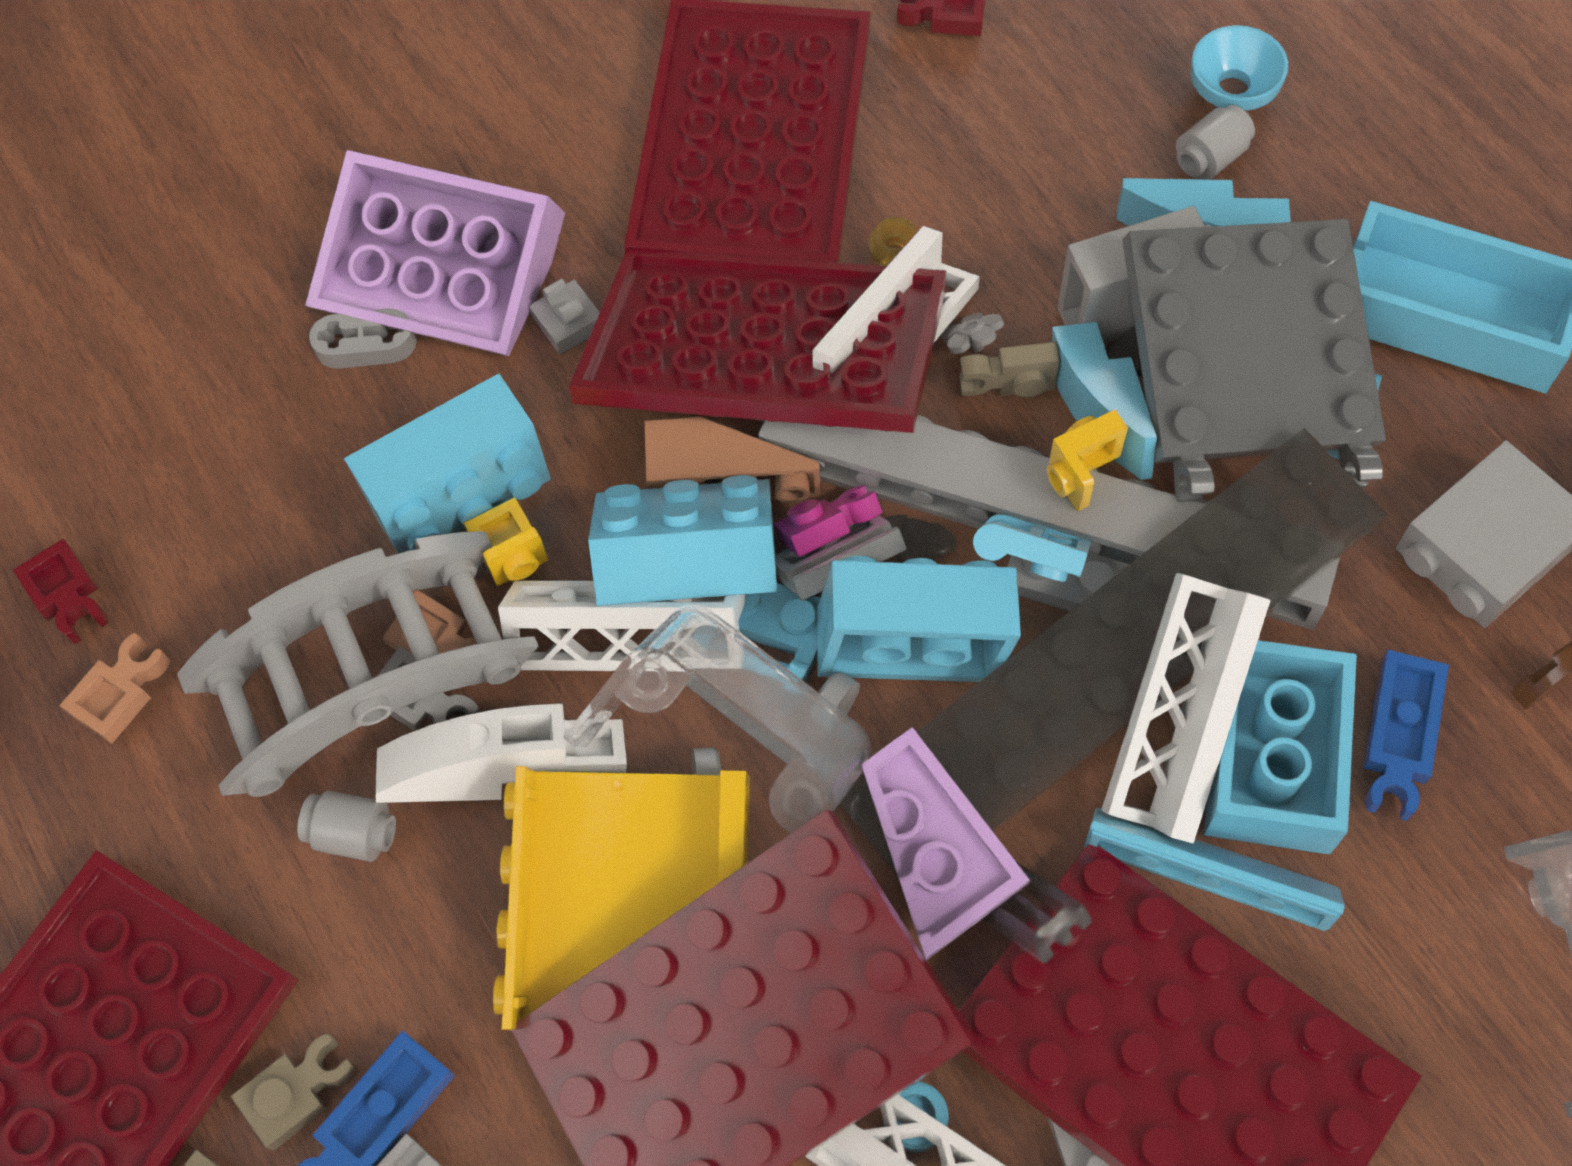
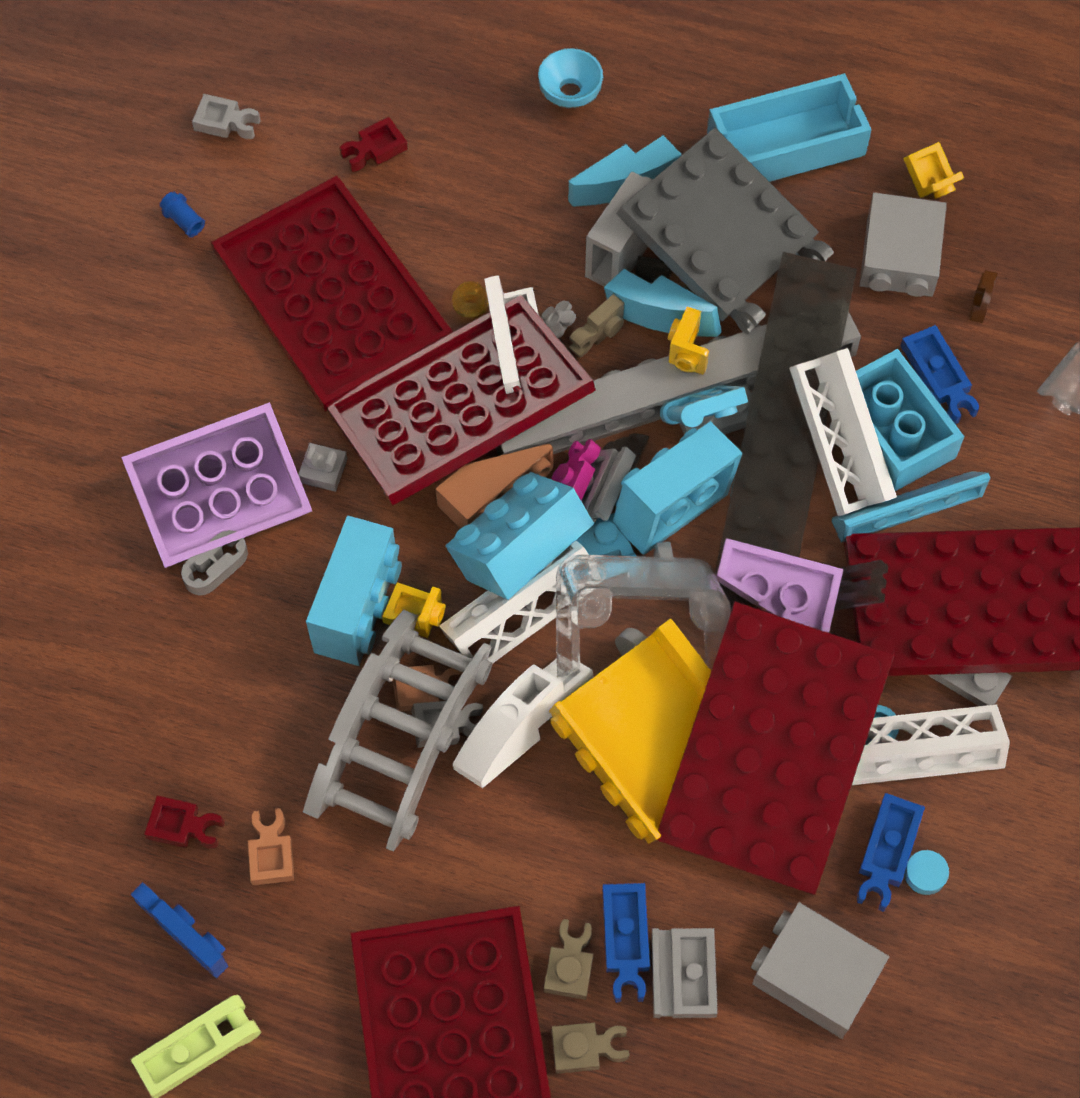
camera: 45 degrees left, 0 degrees up
(346, 825) = (473, 814): light grey brick -> none
(1215, 142) = (592, 128): light grey brick -> none

